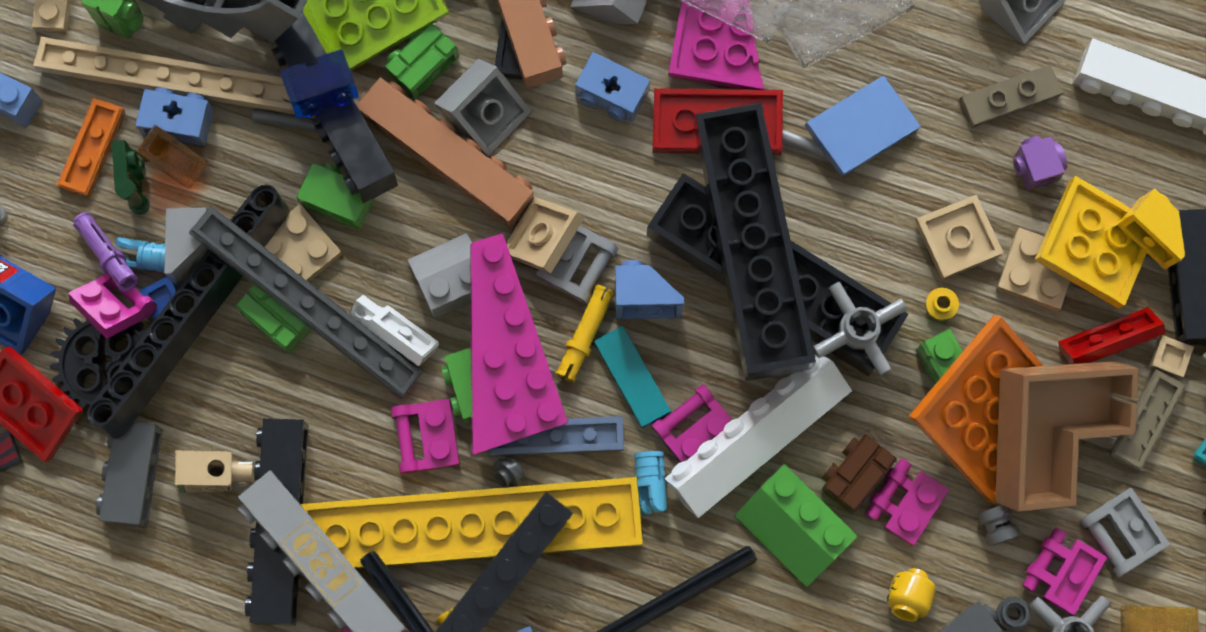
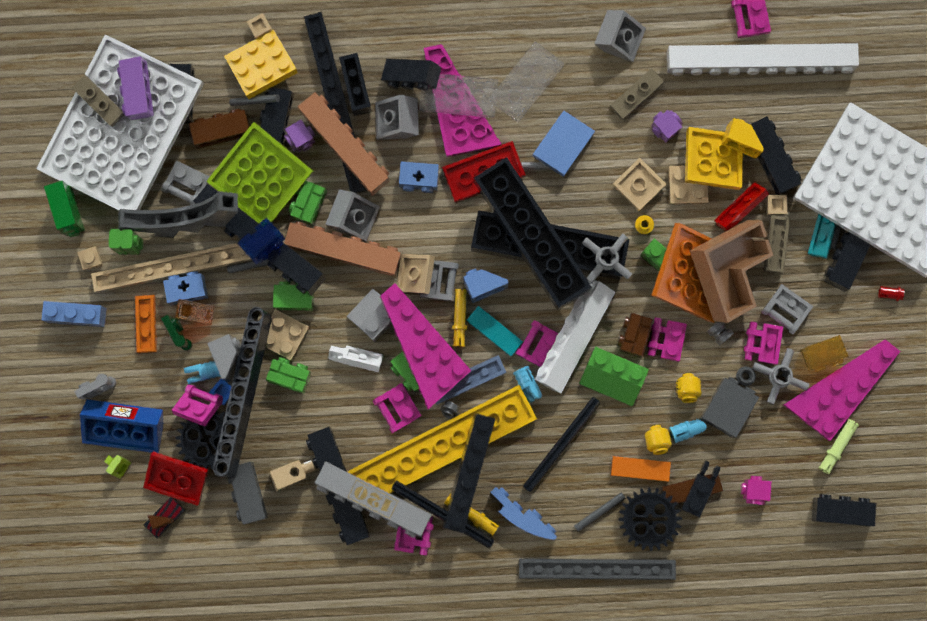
camera: 20 degrees left, 5 degrees up
(111, 260) = (186, 382): medium lavender pin -> none
(305, 302) = (303, 363): dark grey tile -> none

